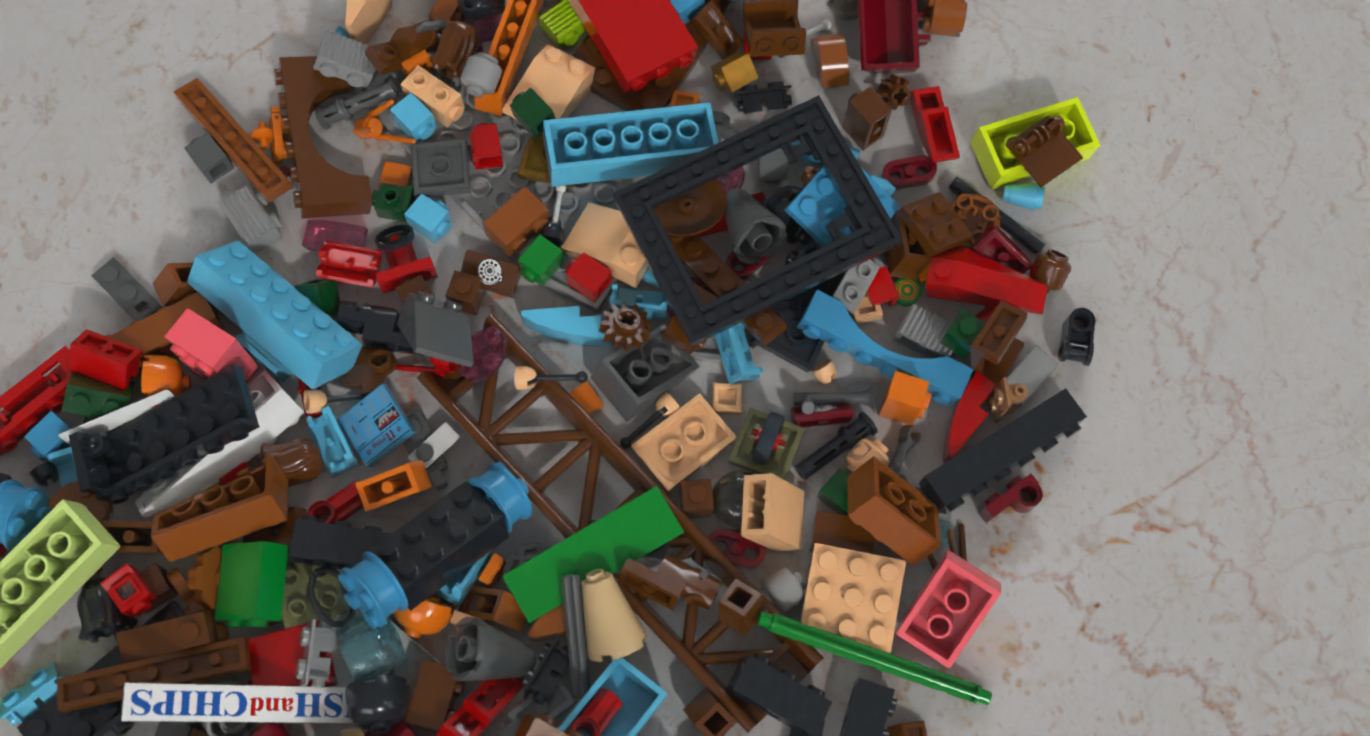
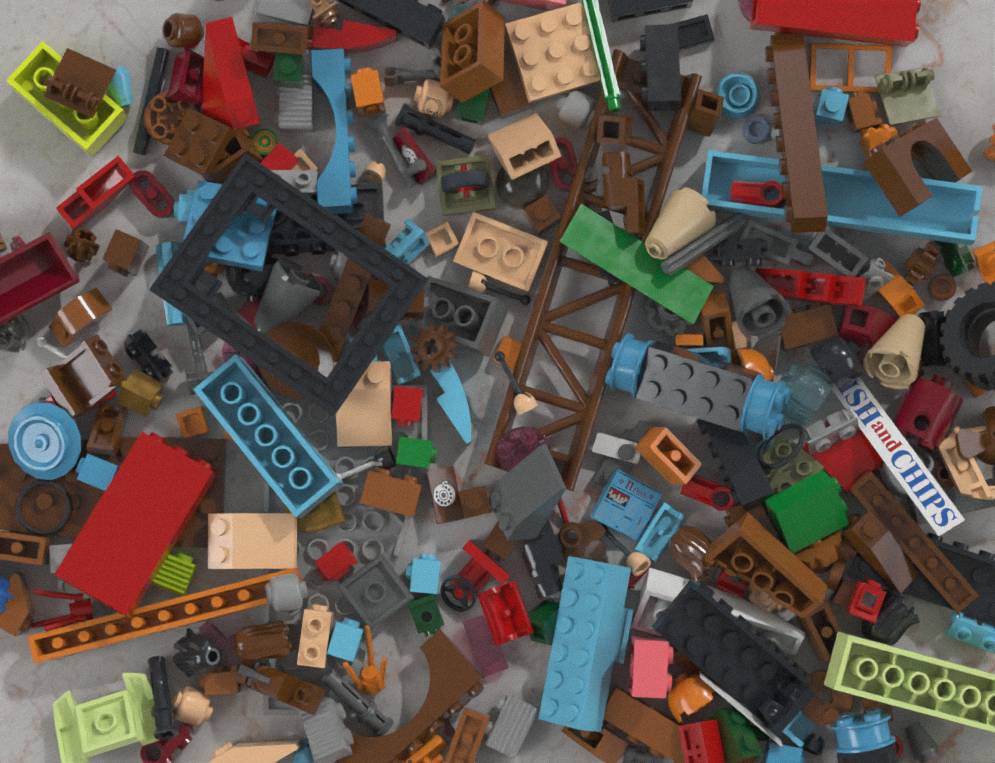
camera: 115 degrees left, 15 degrees up
(396, 174) = (402, 630): orange tile -> none
(421, 59) = (291, 667): orange tile -> none
(531, 111) = (289, 535): dark green brick -> none

